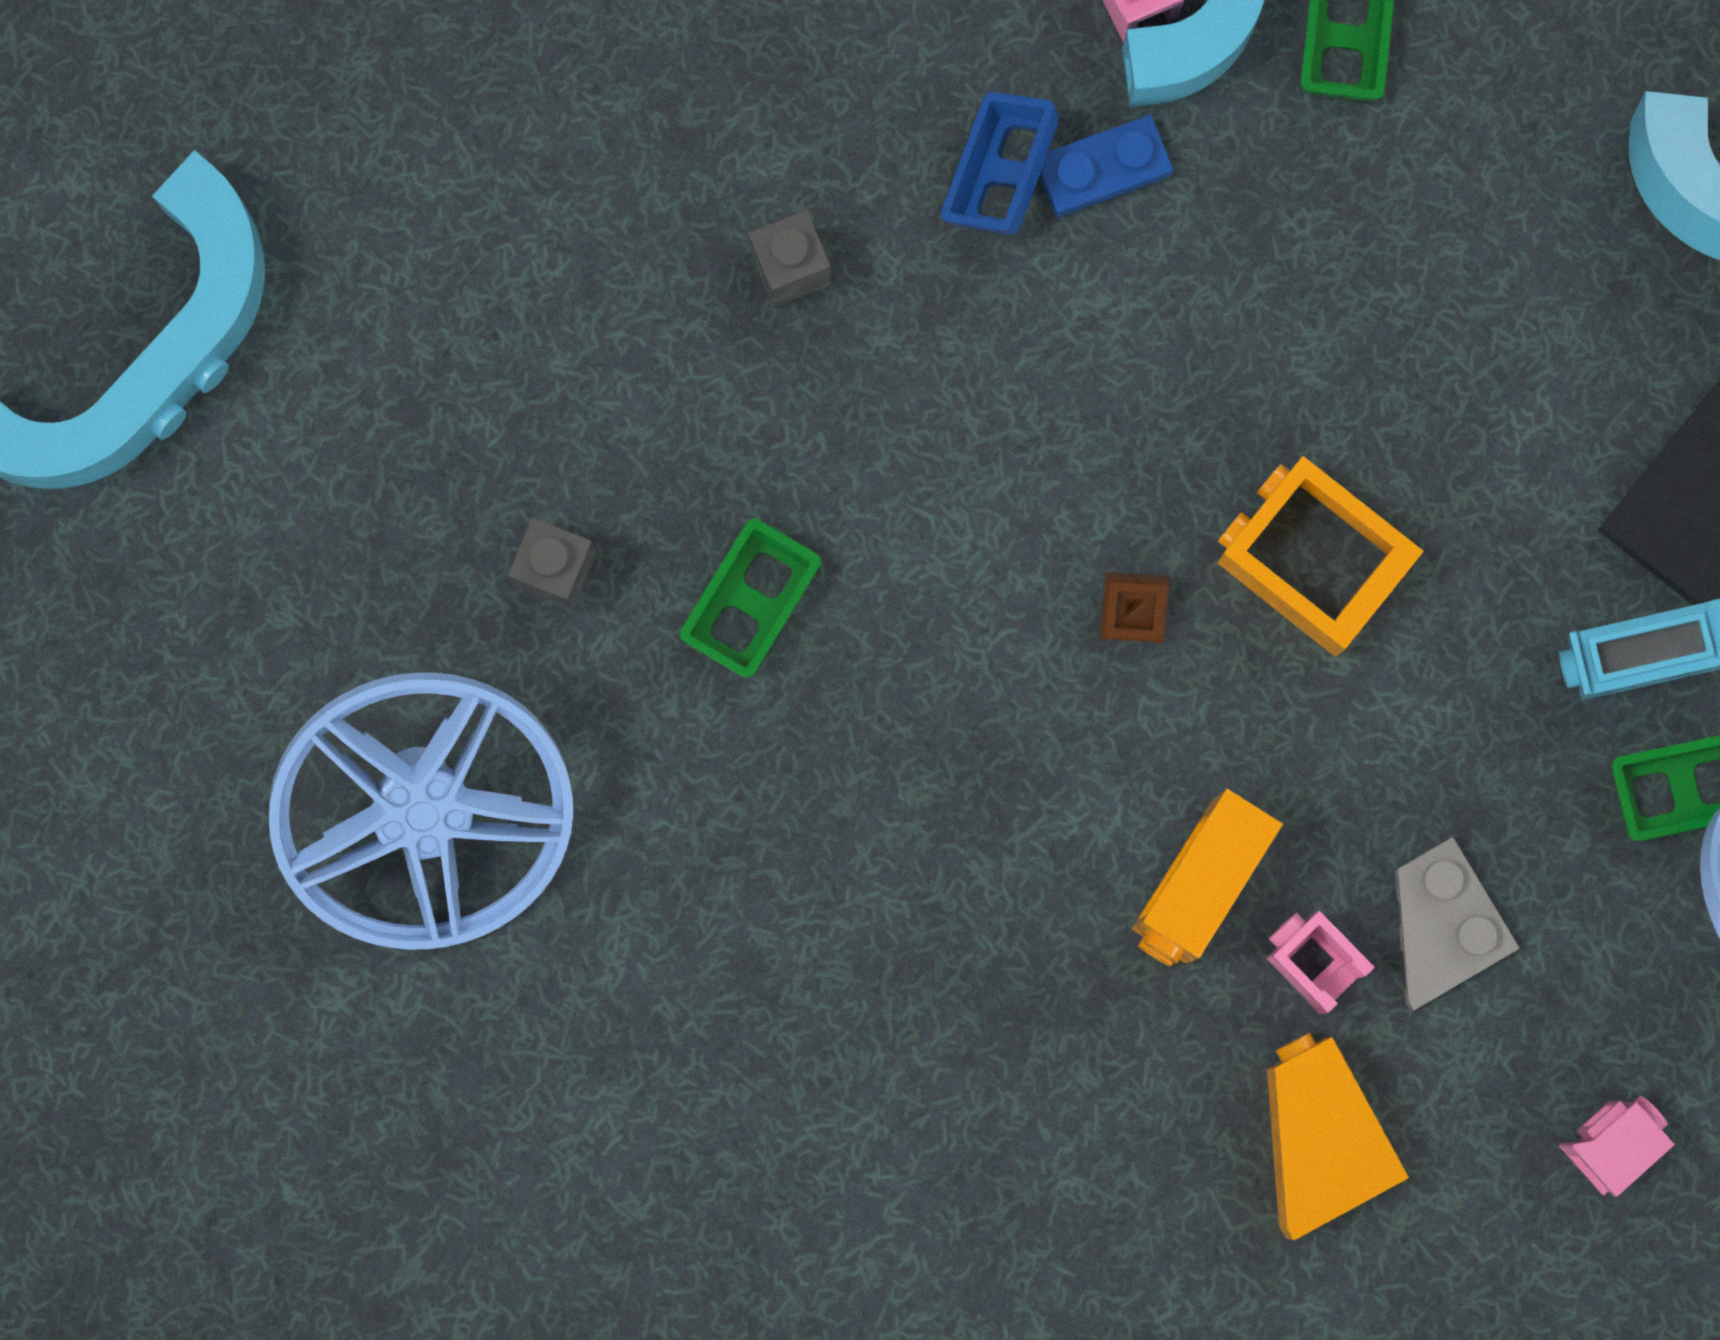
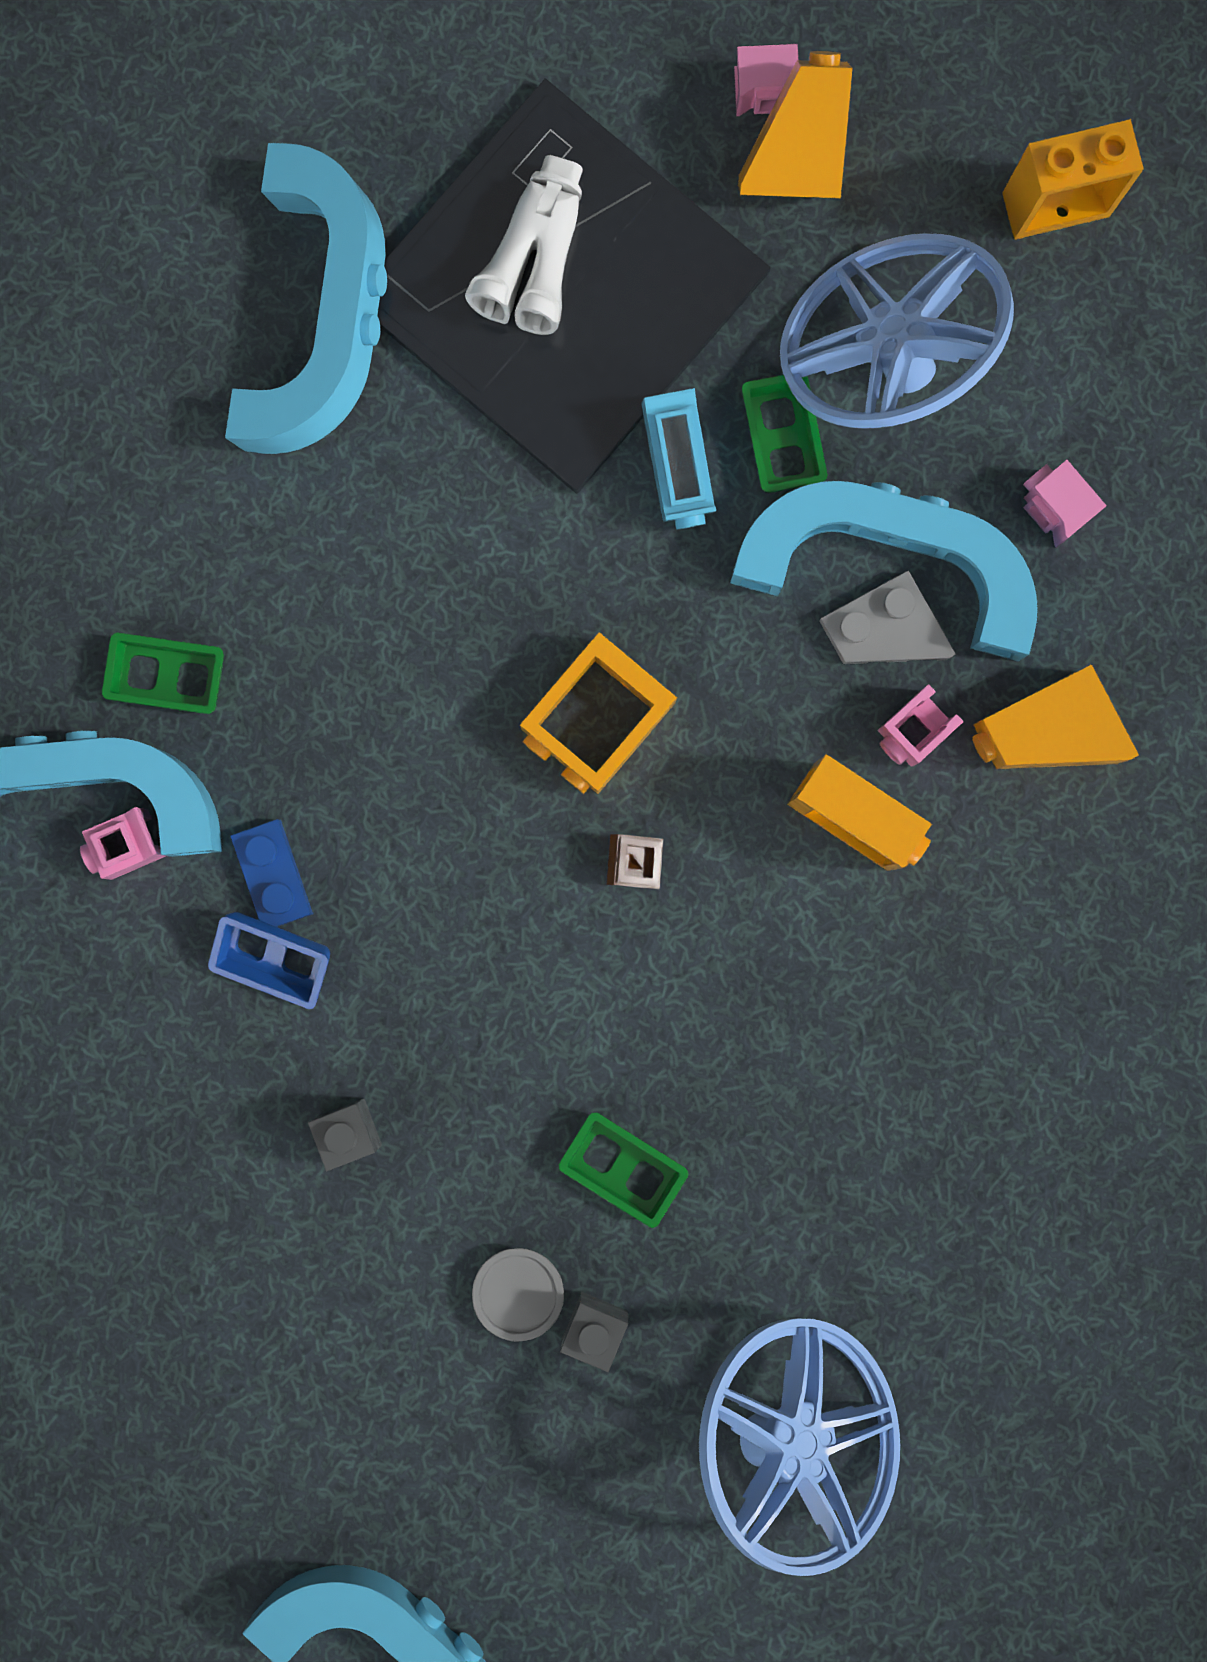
camera: 85 degrees left, 5 degrees up
(595, 472) = (517, 1294): none -> light grey piece
(1583, 933) = (919, 525): none -> medium azure arch

